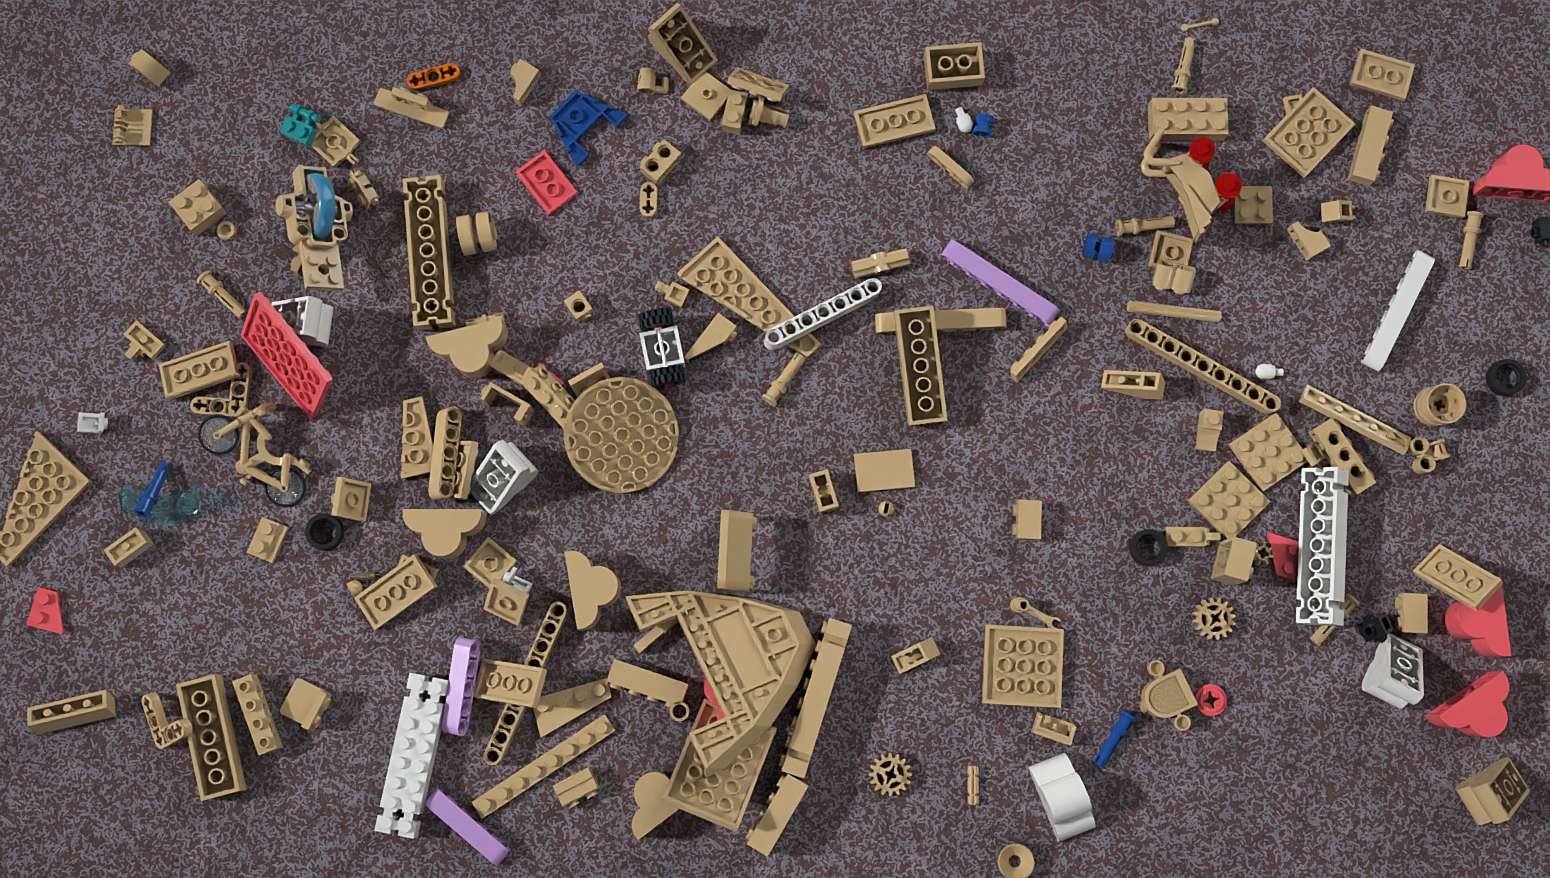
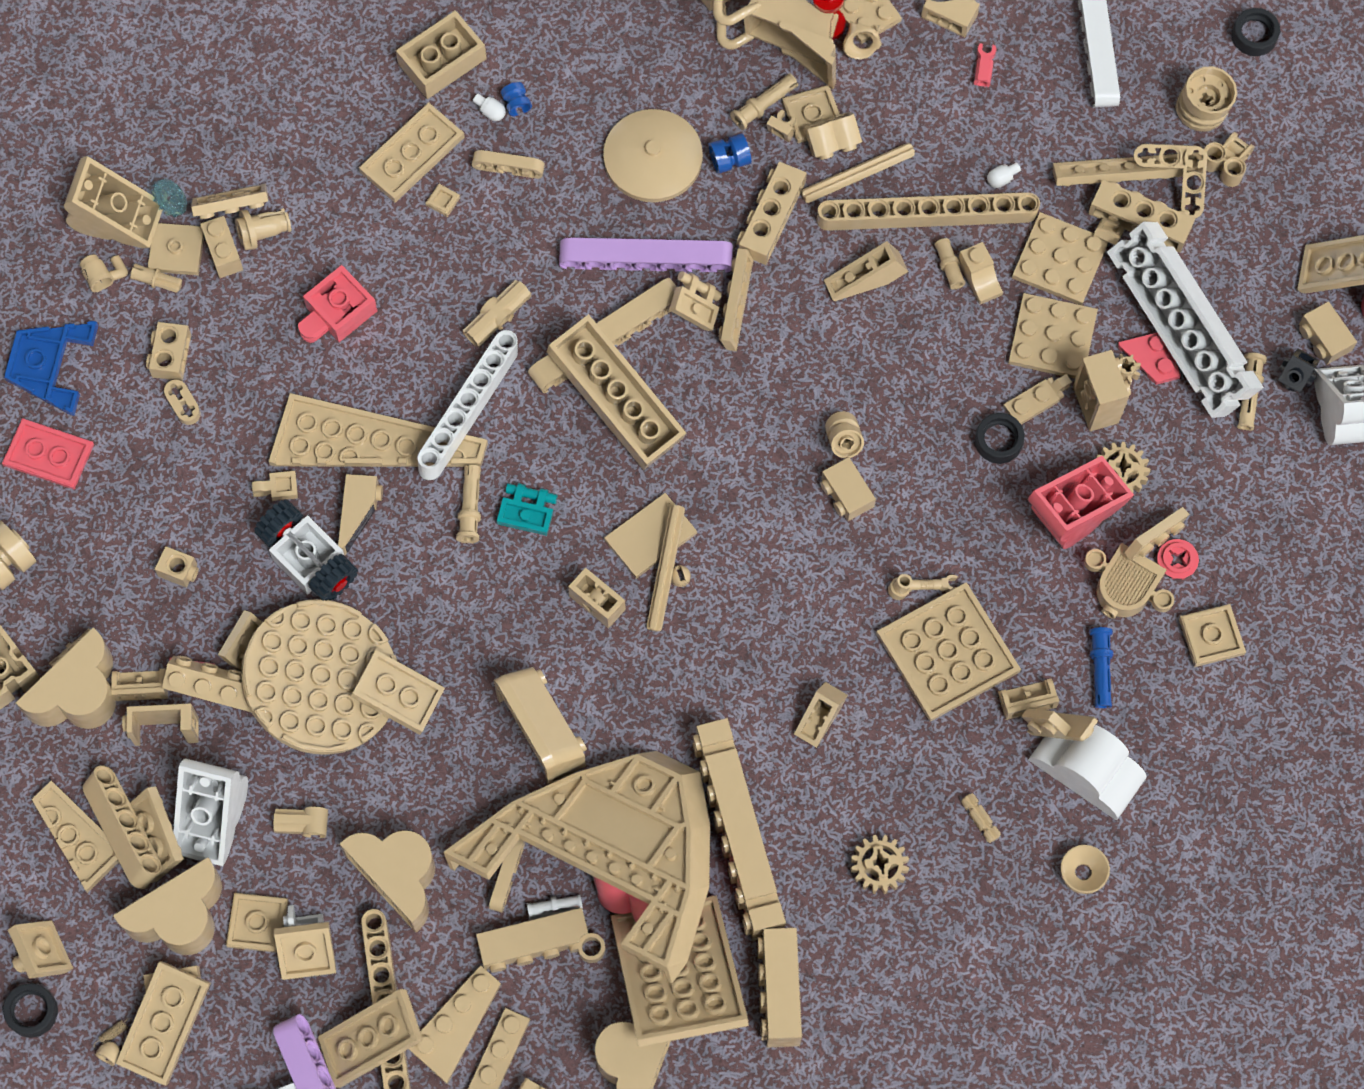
camera: 35 degrees left, 10 degrees down
(558, 520) = (305, 822): none -> tan piece
(662, 474) = (397, 692): none -> tan plate
(673, 670) = (553, 906): none -> white pin
(681, 107) = (155, 278): none -> tan axle
(727, 63) = (177, 203): none -> clear light blue gear
(781, 196) = (327, 303): none -> coral brick
(814, 408) = (524, 515): none -> teal plate
(884, 493) = (665, 568): none -> tan axle
(894, 165) = (443, 200): none -> tan tile
(1007, 339) = (693, 307): none -> tan plate
(1048, 217) = (653, 155): none -> tan dish
(1048, 483) = (844, 434): none -> tan wheel
(1059, 764) = (1059, 725): none -> tan bracket
(1125, 290) = (782, 178): none -> tan brick
(1143, 251) = (780, 128): none -> tan tile
(1172, 625) = (1079, 501): none -> coral brick
(1193, 410) = (949, 263): none -> tan pin
(1199, 764) = (1212, 635): none -> tan plate
(1207, 678) = (1157, 534): none -> tan plate
(1228, 229) = (855, 52): none -> tan piece
(1305, 289) = (984, 66): none -> coral bar
(1392, 439) = (1182, 162): none -> tan beam

